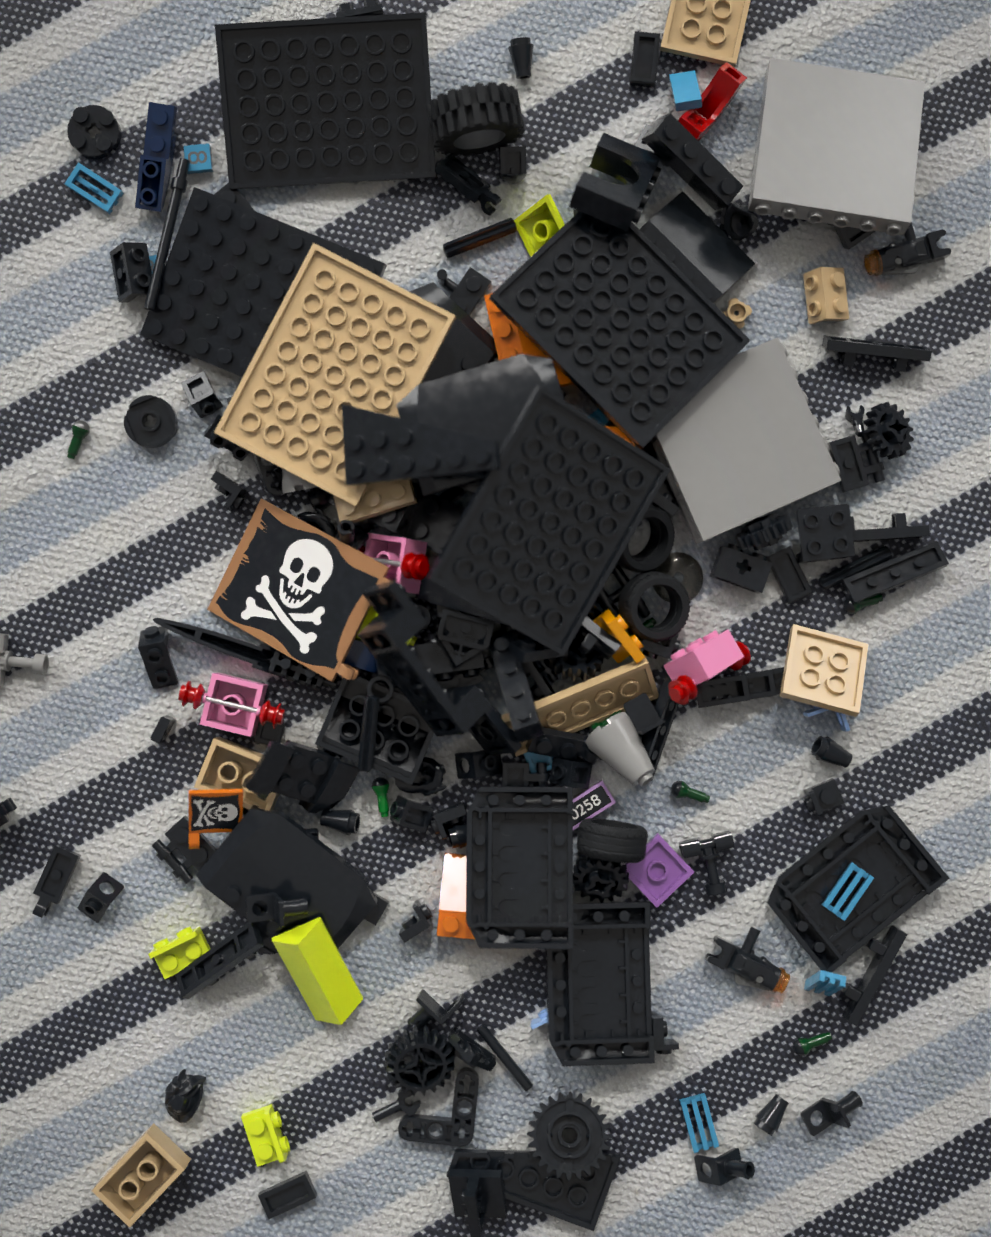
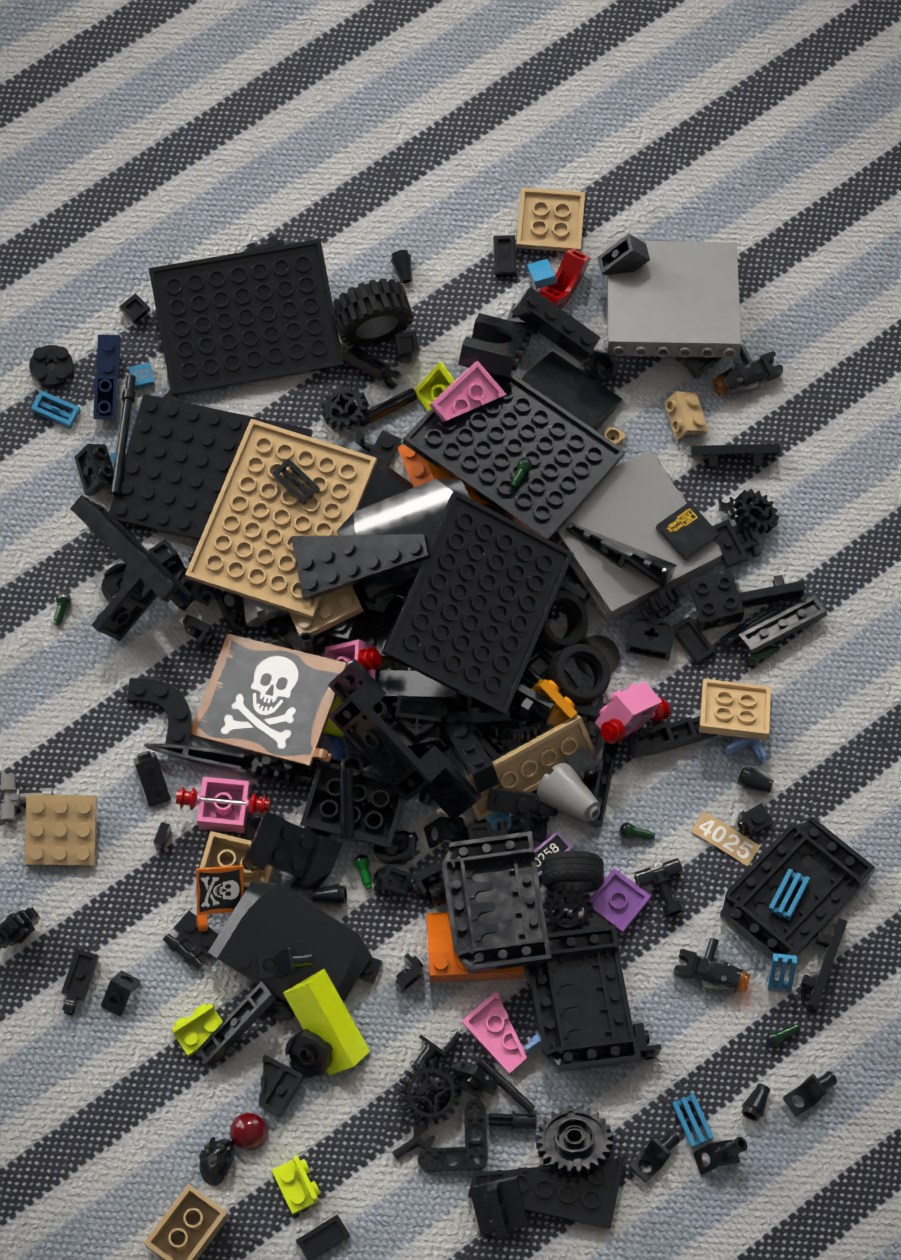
camera: 10 degrees left, 20 degrees down
(50, 706) = (60, 830): none -> tan plate
(165, 406) = (141, 564): none -> black piece
(193, 575) = (171, 701): none -> black plate
(198, 70) = (134, 308): none -> black plate
(222, 1070) = (249, 1131): none -> dark red hair
(258, 1026) = (278, 1086): none -> black wing
(295, 1001) = (316, 1046): none -> black plate
(370, 352) = (308, 494): none -> black tile
(438, 239) = (345, 408): none -> black gear
(501, 1000) = (494, 1031): none -> bright pink wing
(506, 1099) = (513, 1120): none -> black axle
(575, 244) = (467, 392): none -> bright pink wing
(627, 351) = (523, 467): none -> dark green piece
(654, 1158) = (656, 1155): none -> black bracket
(724, 471) = (619, 553): none -> black wedge
(786, 811) = (725, 838): none -> tan sticker
(788, 85) = (624, 256): none -> black slope
(806, 448) = (687, 530): none -> black tile

